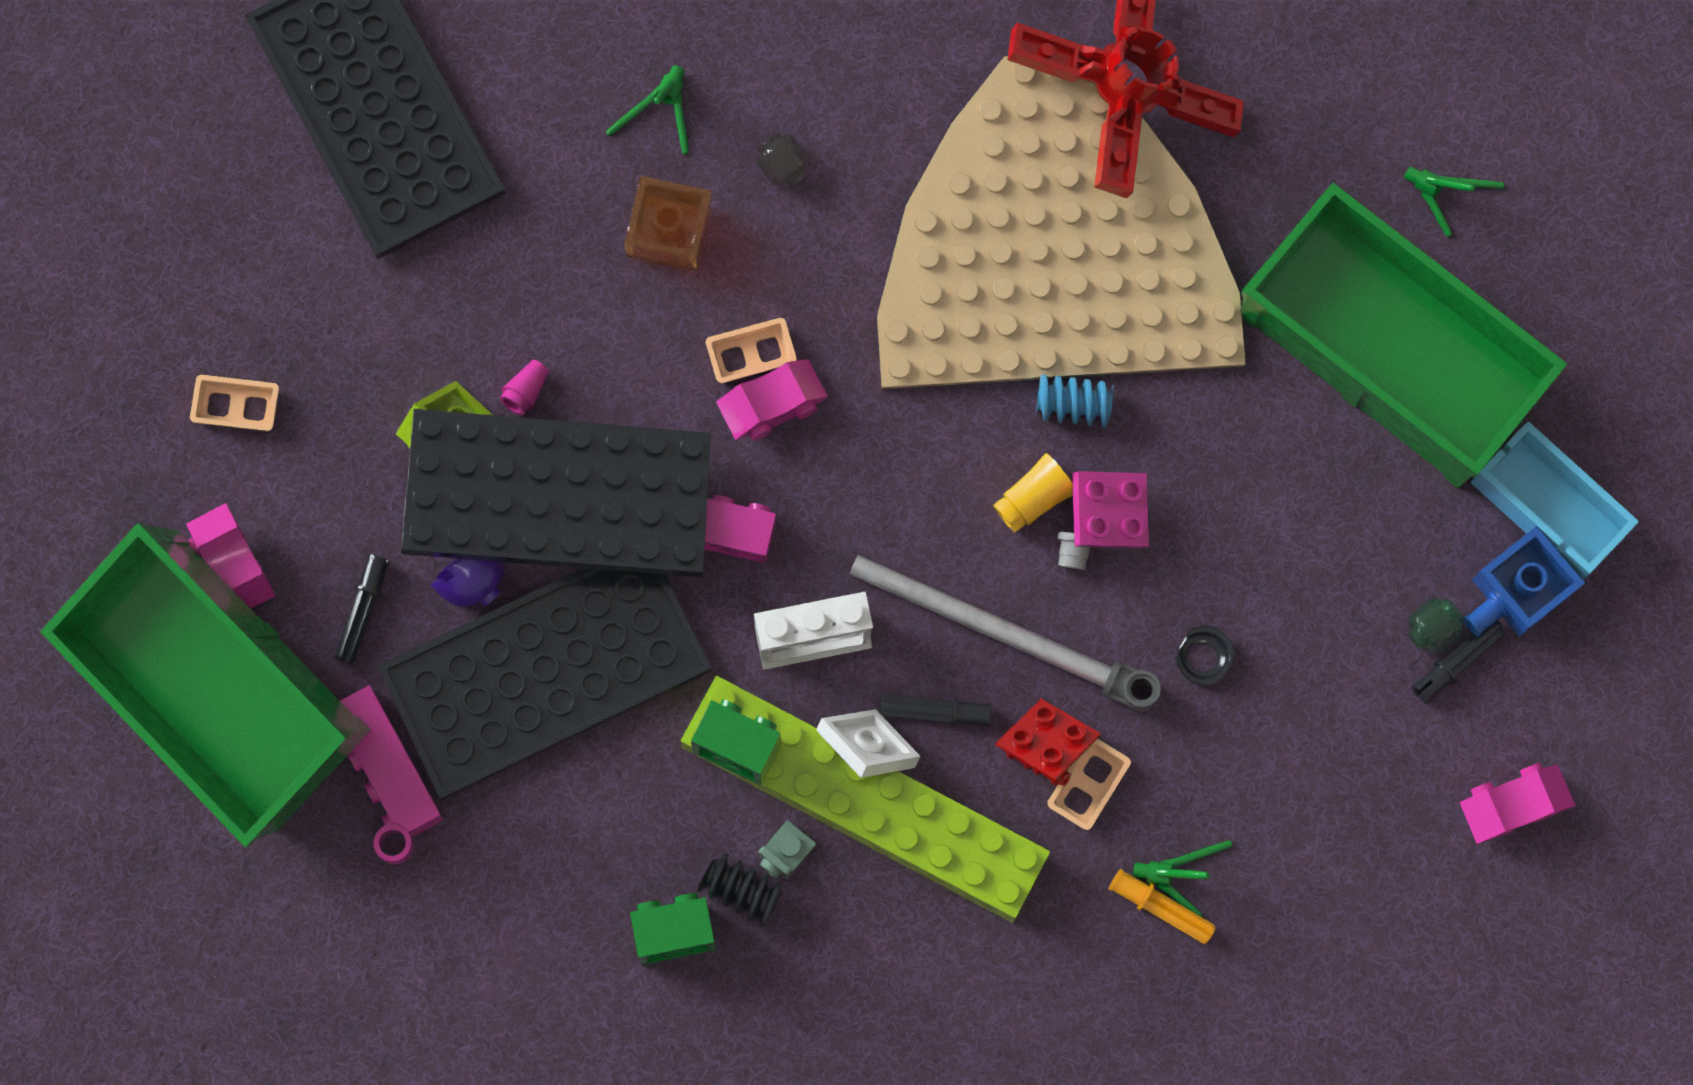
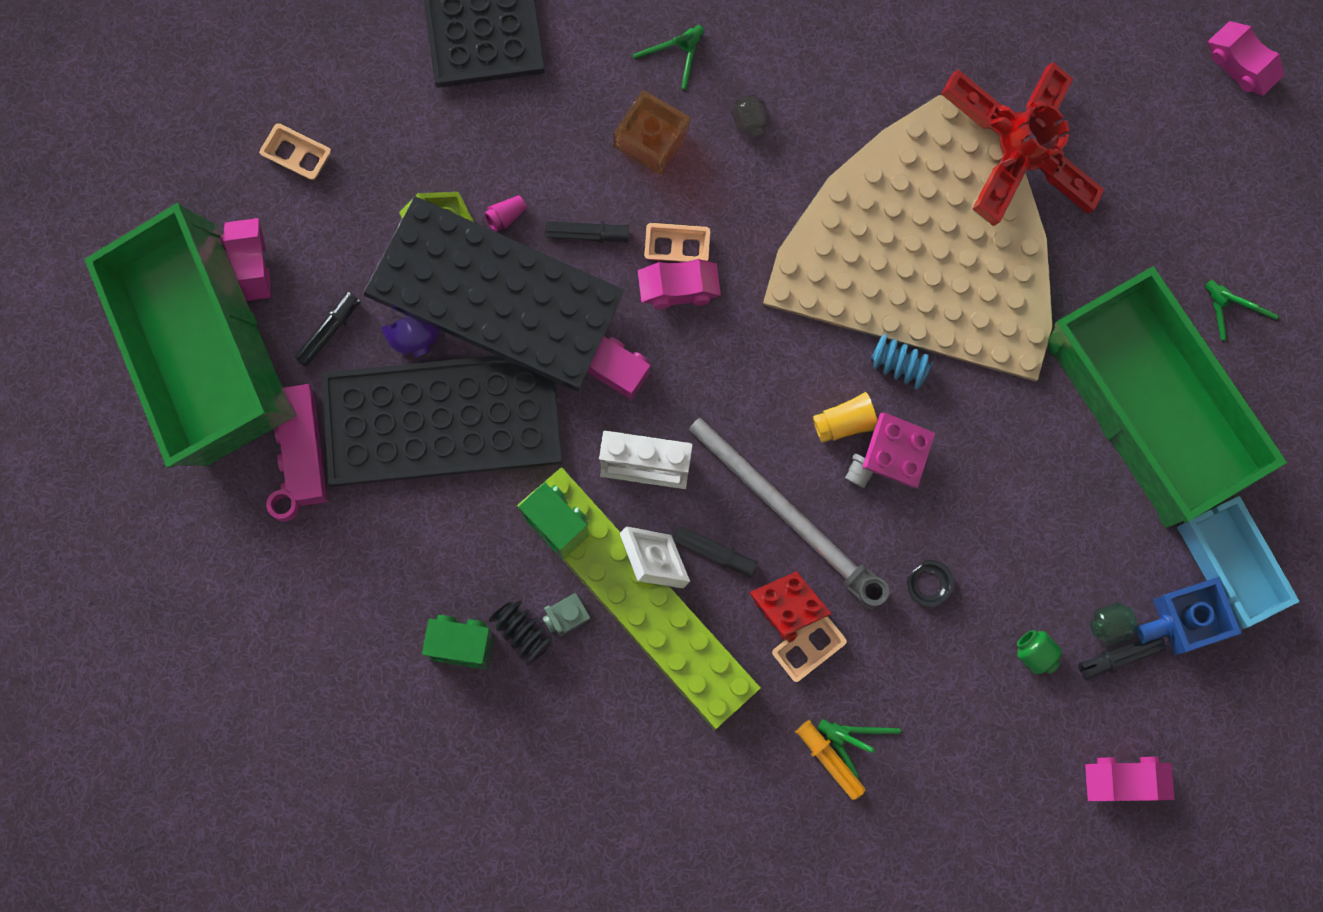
camera: 20 degrees right, 0 degrees up
(635, 374) = (587, 231): none -> black axle
(1360, 691) = (1039, 652): none -> green head

